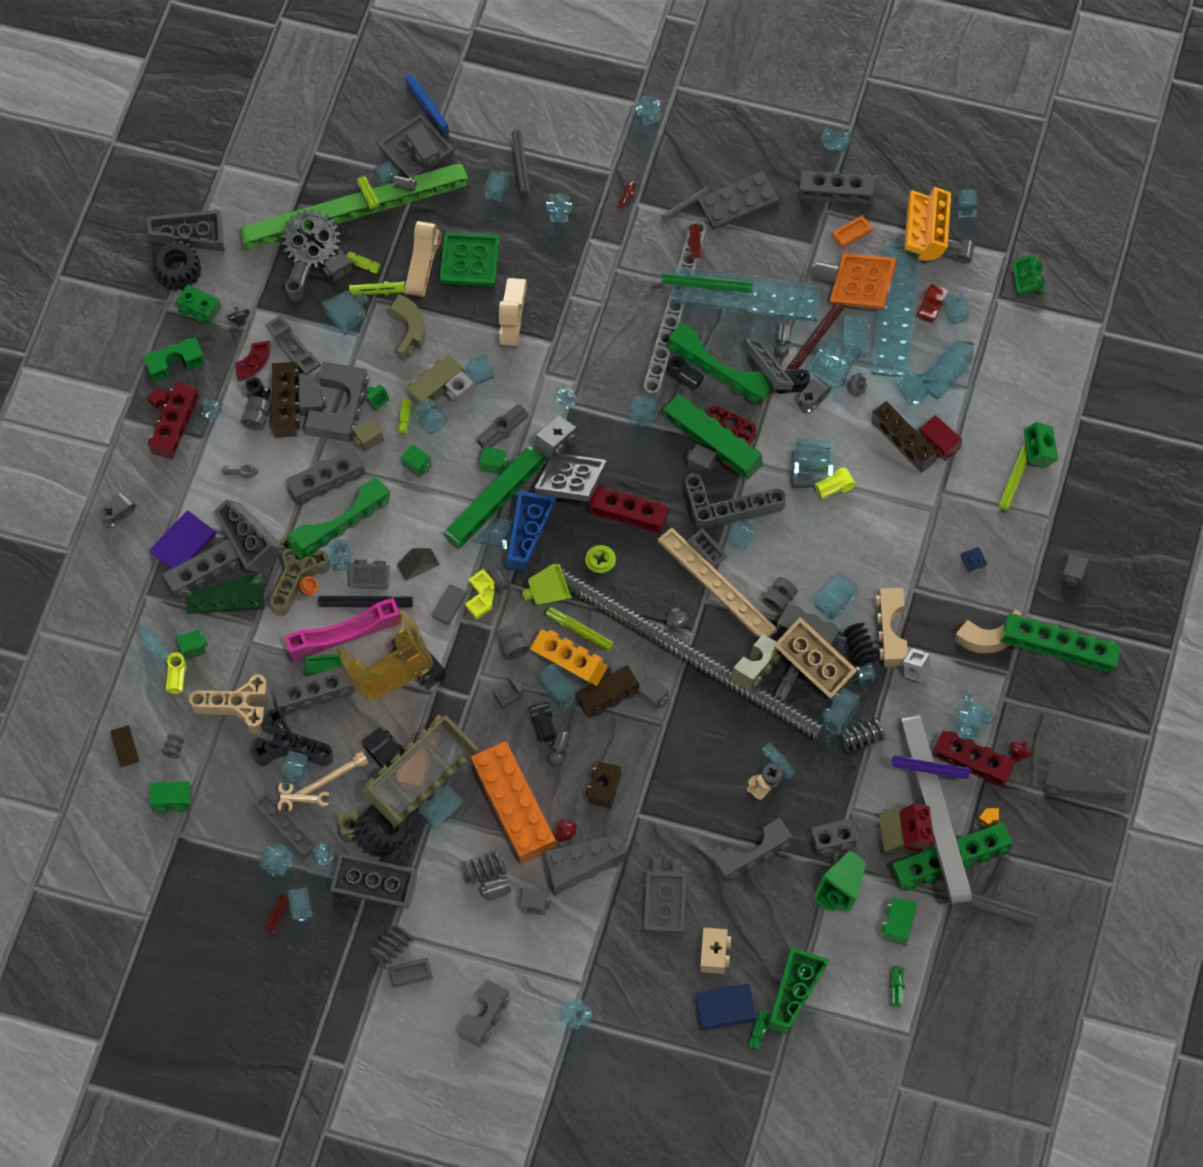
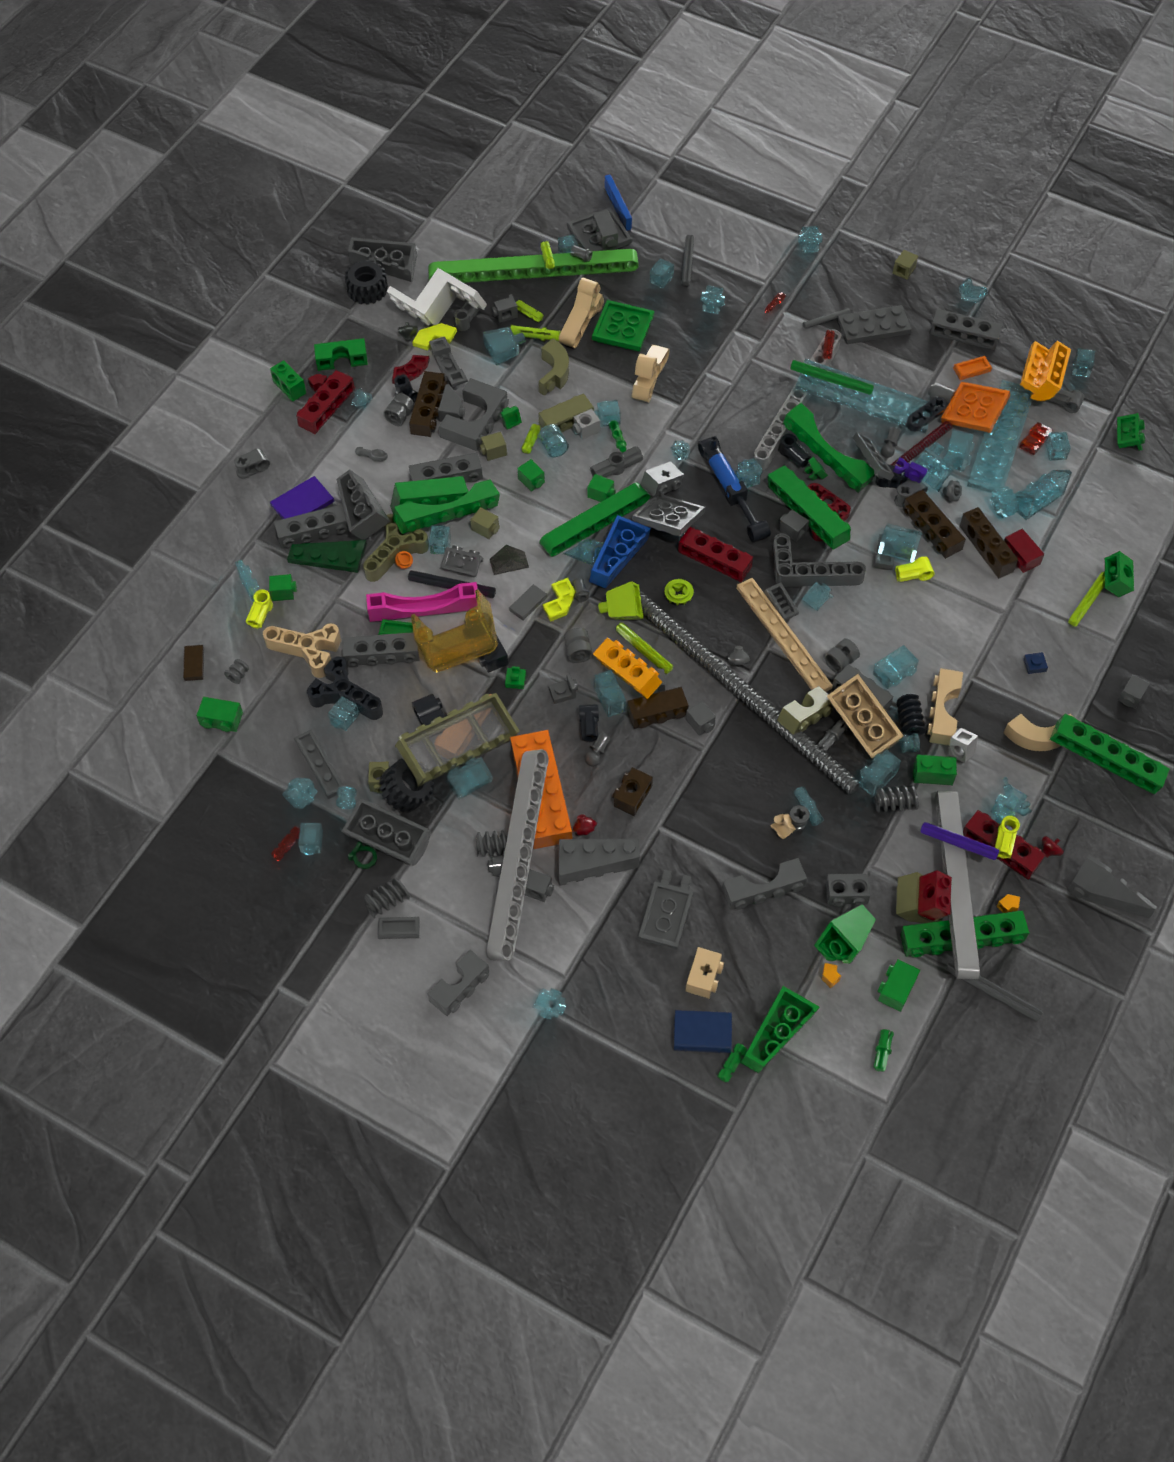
camera: 10 degrees right, 5 degrees down
(126, 404) = (288, 381): none -> green brick
(198, 304) = (375, 316): green brick -> none
(261, 274) = (436, 298): none -> white bracket
(261, 314) = (434, 332): none -> neon yellow tile
(287, 798) = (327, 739): tan bar -> none
(316, 507) = (429, 491): none -> green wedge
(320, 225) = (499, 272): black gear -> none
(346, 912) = (359, 847): none -> dark green piece
(358, 761) = (404, 721): tan piece -> none
(382, 526) = (485, 523): none -> olive brick
(457, 690) = (515, 678): none -> green tile
(495, 394) = (617, 434): none -> green piece
(509, 875) = (517, 855): none -> light grey beam
(633, 432) = (735, 490): none -> black piece
(713, 389) = (817, 469): none -> green tile
(757, 119) = (905, 264): none -> olive brick
(812, 310) = (923, 420): none -> black beam
(812, 375) = (912, 471): none -> dark purple plate
(828, 405) = (934, 524): none -> dark brown brick
(833, 925) = (830, 974): none -> light orange piece
(894, 696) = (935, 770): none -> green brick
(974, 754) = (1005, 837): none -> neon yellow piece

